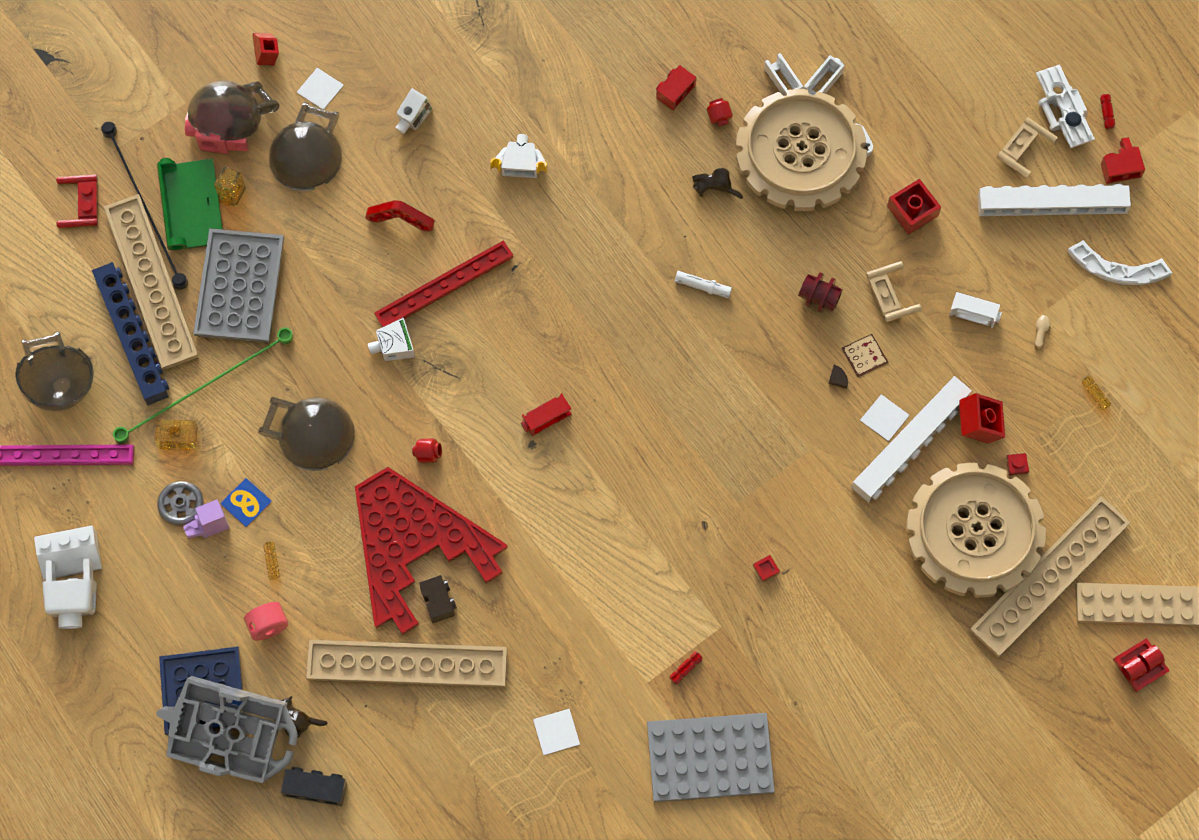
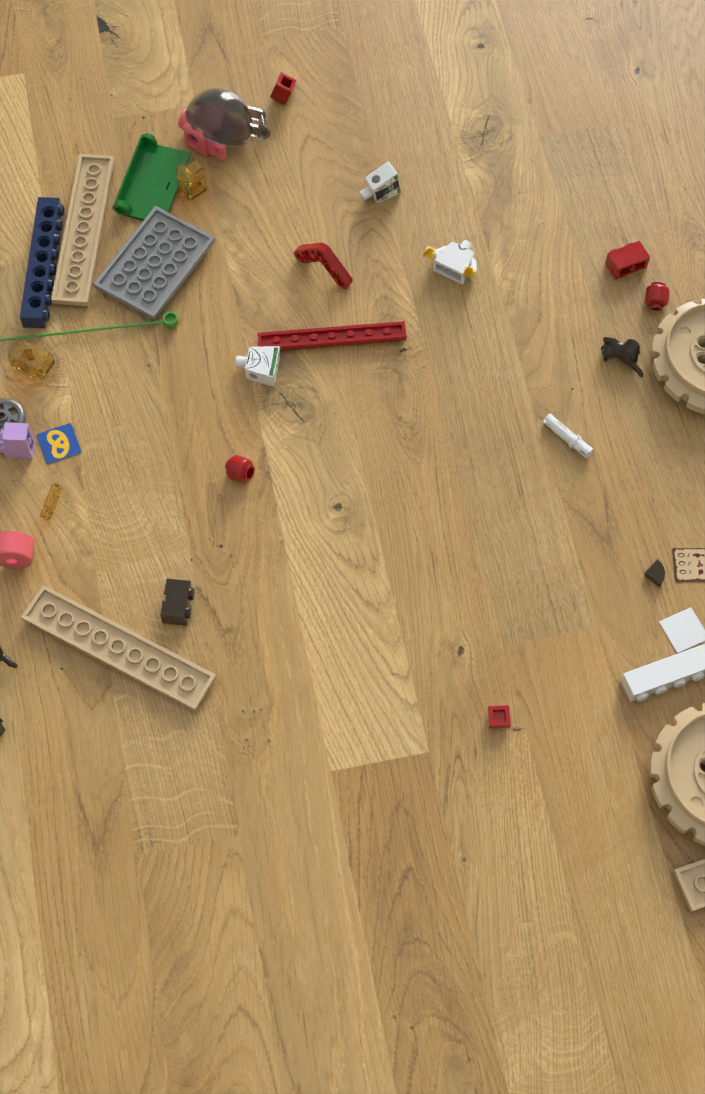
camera: 25 degrees right, 5 degrees down
(86, 201) = (69, 146): red plate -> none
(179, 280) = (108, 238): black piece -> none
(306, 152) = (273, 180): clear smoke windscreen -> none
(311, 432) = (148, 408): clear smoke windscreen -> none
(320, 88) = (313, 138): white sticker -> none
(403, 525) = (180, 524): red wing -> none
(546, 415) = (363, 486): red window -> none
(556, 731) = (221, 776): white sticker -> none
(685, 667) = (374, 774): red axle -> none
(710, 757) = (354, 872): light grey plate -> none
(820, 292) = (672, 484): dark red piece -> none

